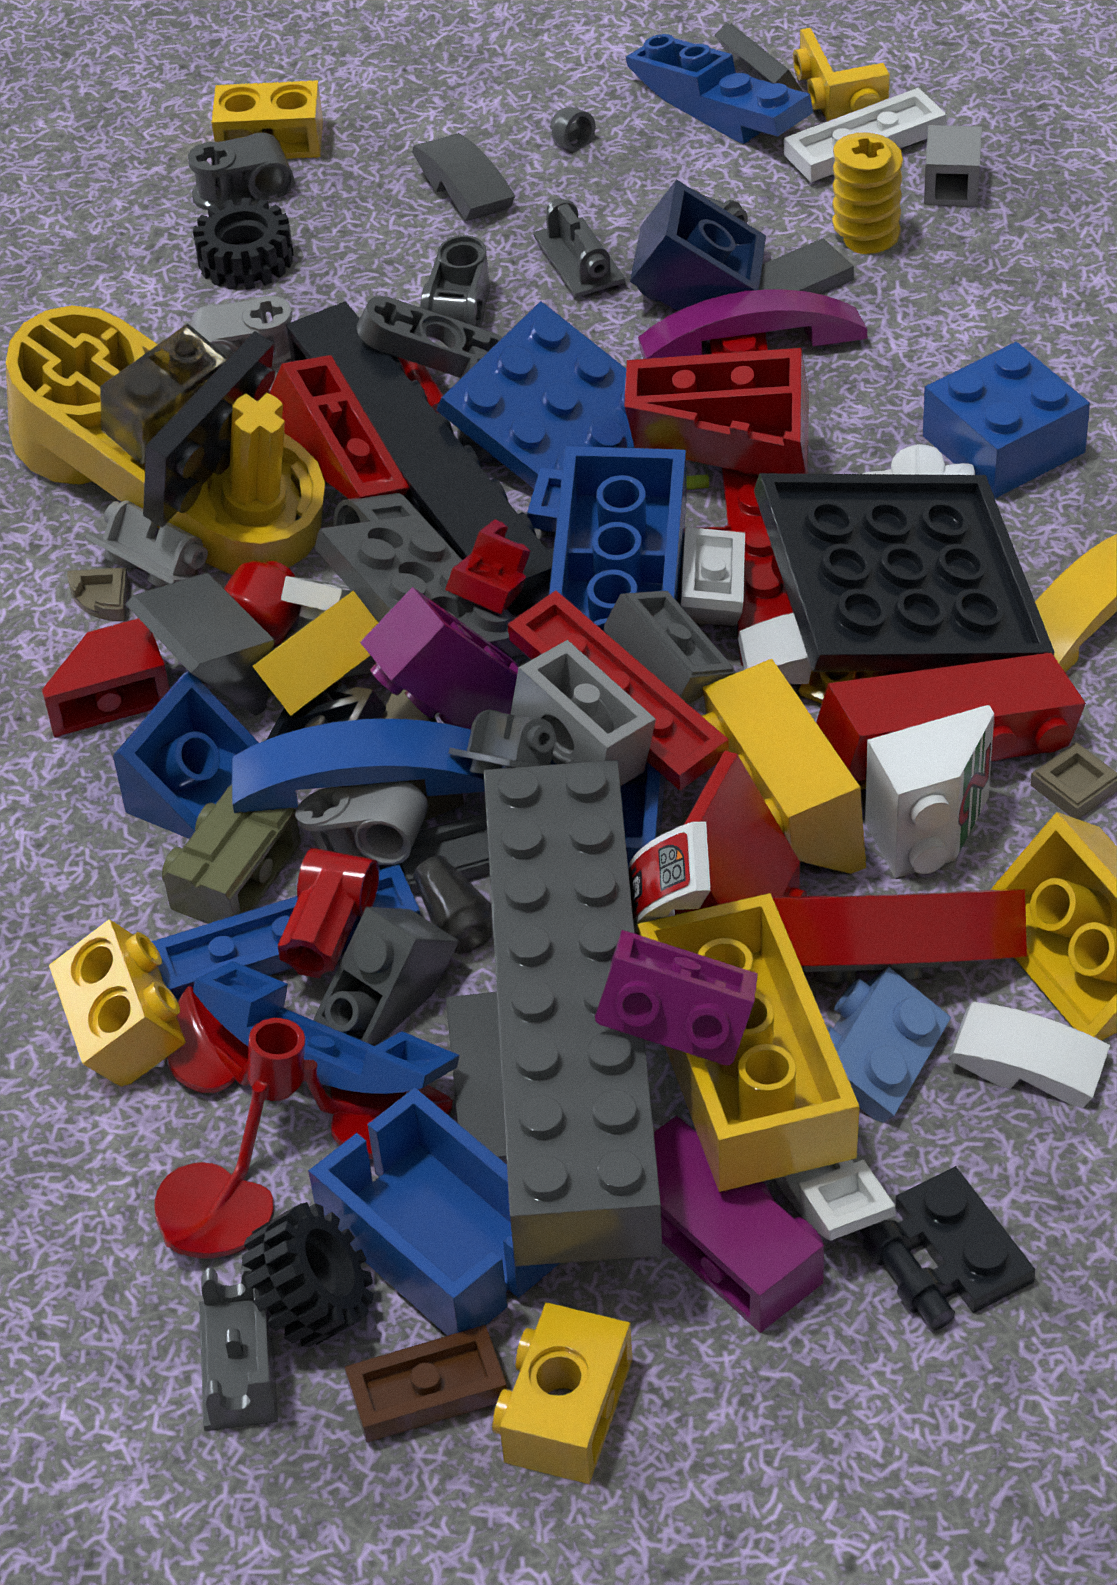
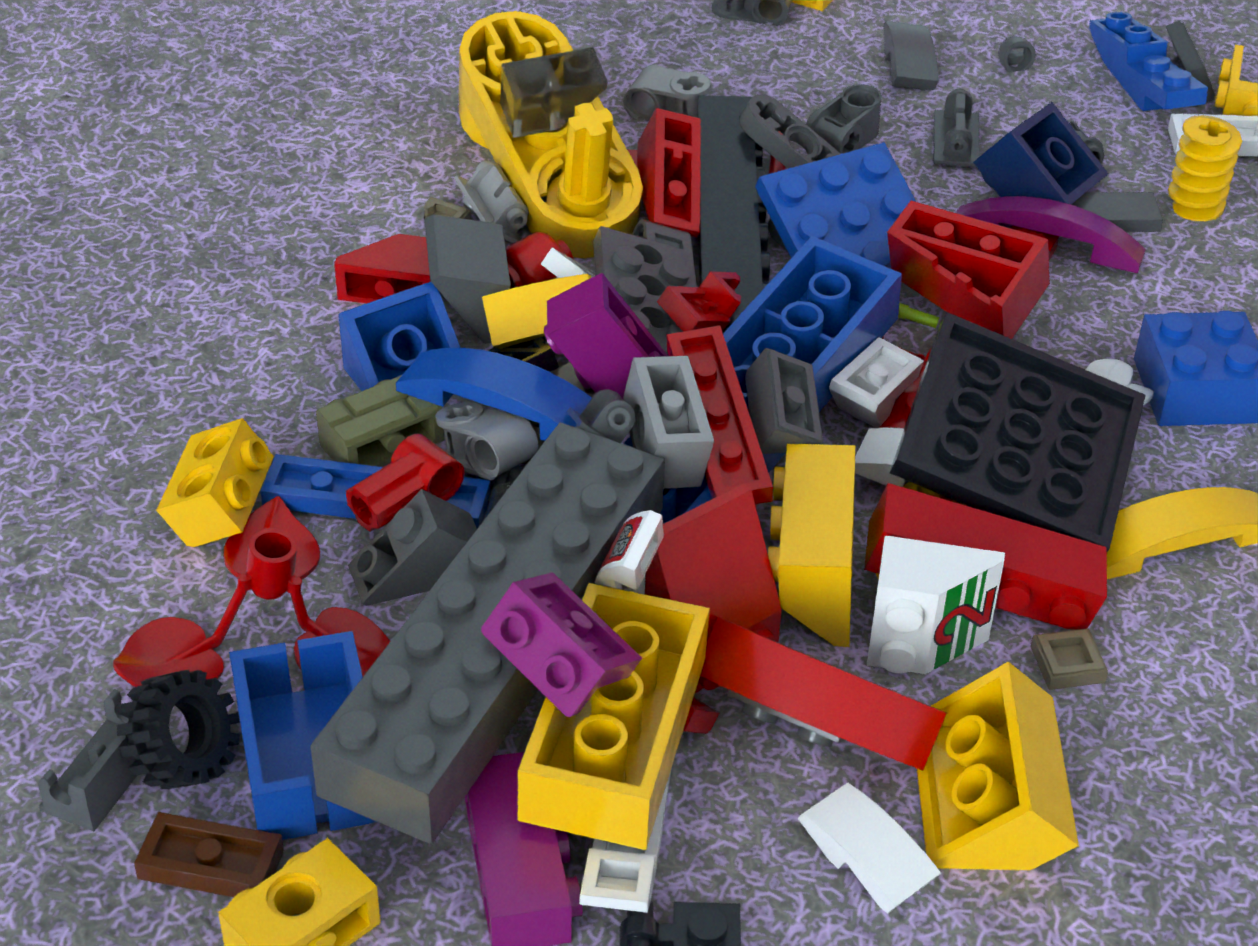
camera: 25 degrees right, 5 degrees down
(200, 433) = (533, 129): black plate -> none
(223, 229) = (719, 41): black tyre -> none
(400, 1063) = (326, 577): blue slope -> none
(885, 1039) = (749, 781): medium blue bracket -> none

